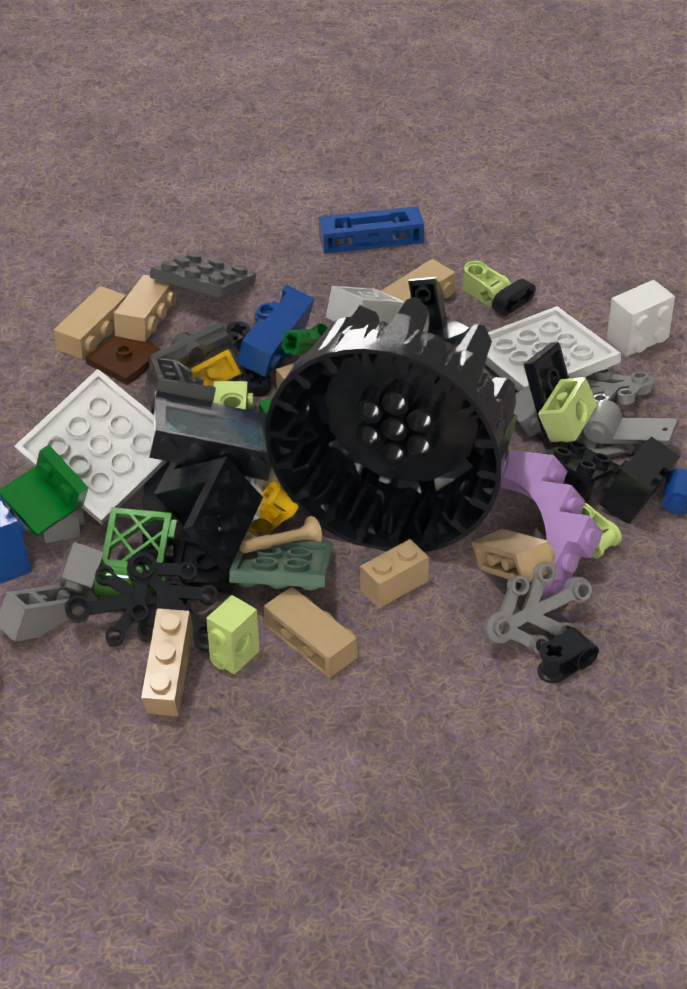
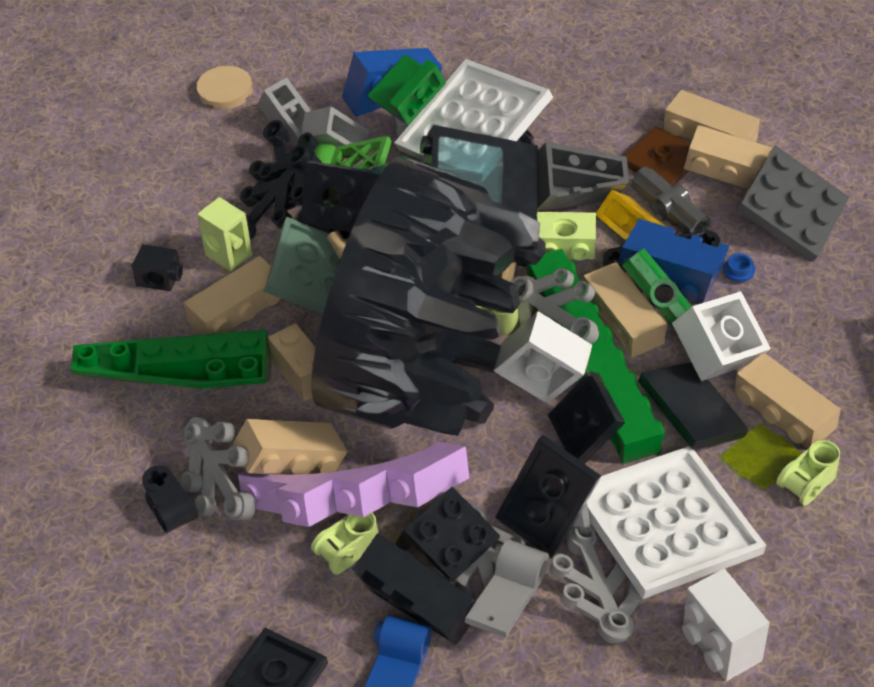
camera: 95 degrees right, 5 degrees up
(167, 662) = (187, 193): tan brick -> none
(265, 699) = (157, 267): none -> black brick
(406, 653) = (180, 360): none -> green wedge
(431, 295) = (733, 394): black slope -> none
(468, 311) = (761, 456): none -> clear neon green piece
(513, 297) = (787, 502): black beam -> none
(567, 409) = (534, 509): yellowish green brick -> none

